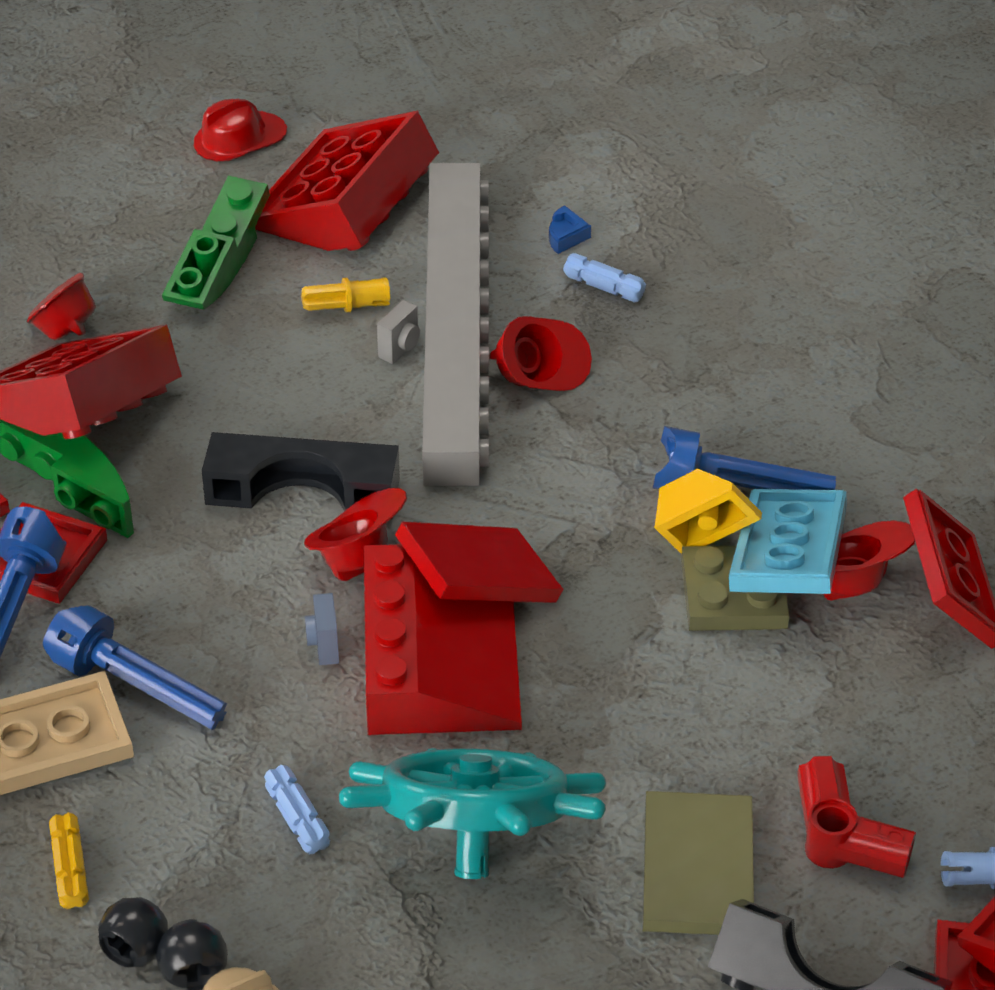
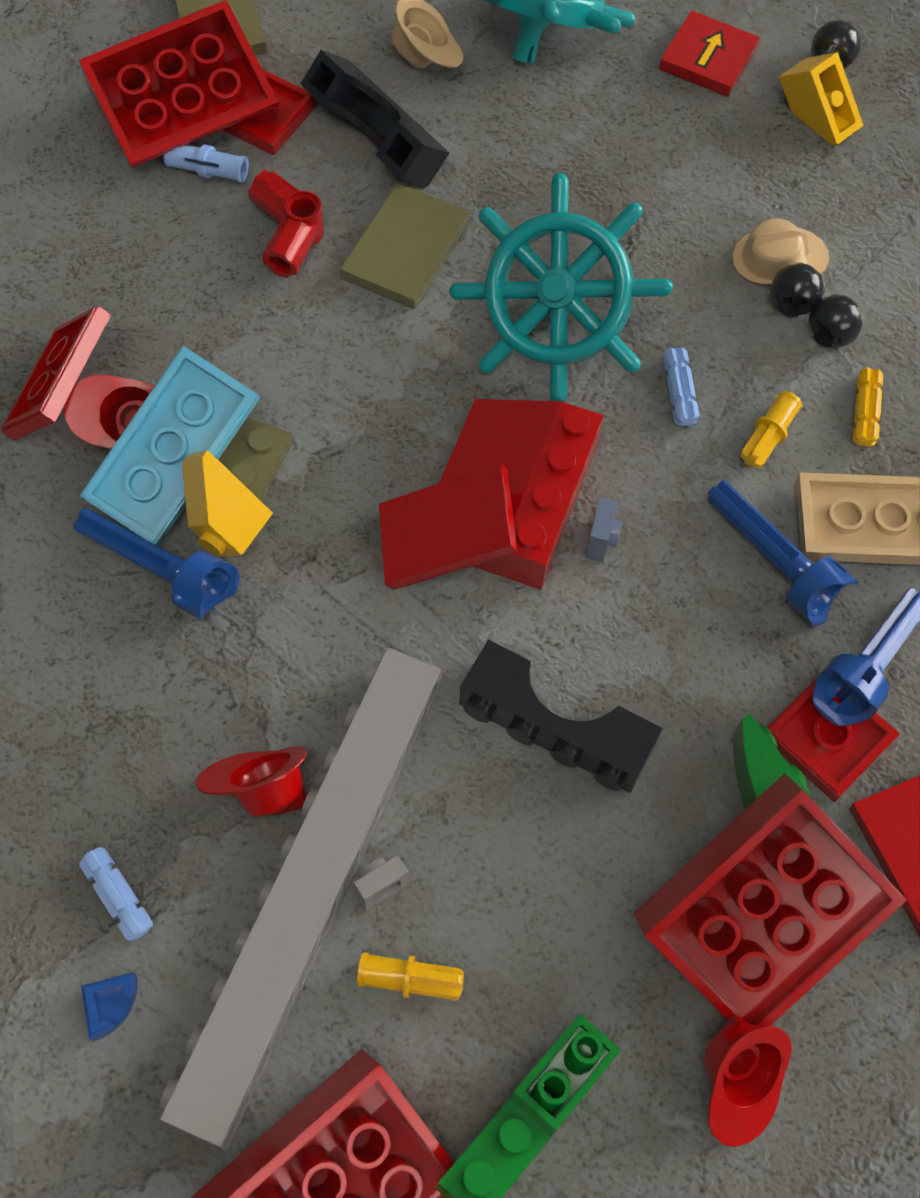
camera: 160 degrees left, 20 degrees up
(176, 794) = (771, 429): none -> yellow axle
(359, 525) = (537, 610): red piece -> none

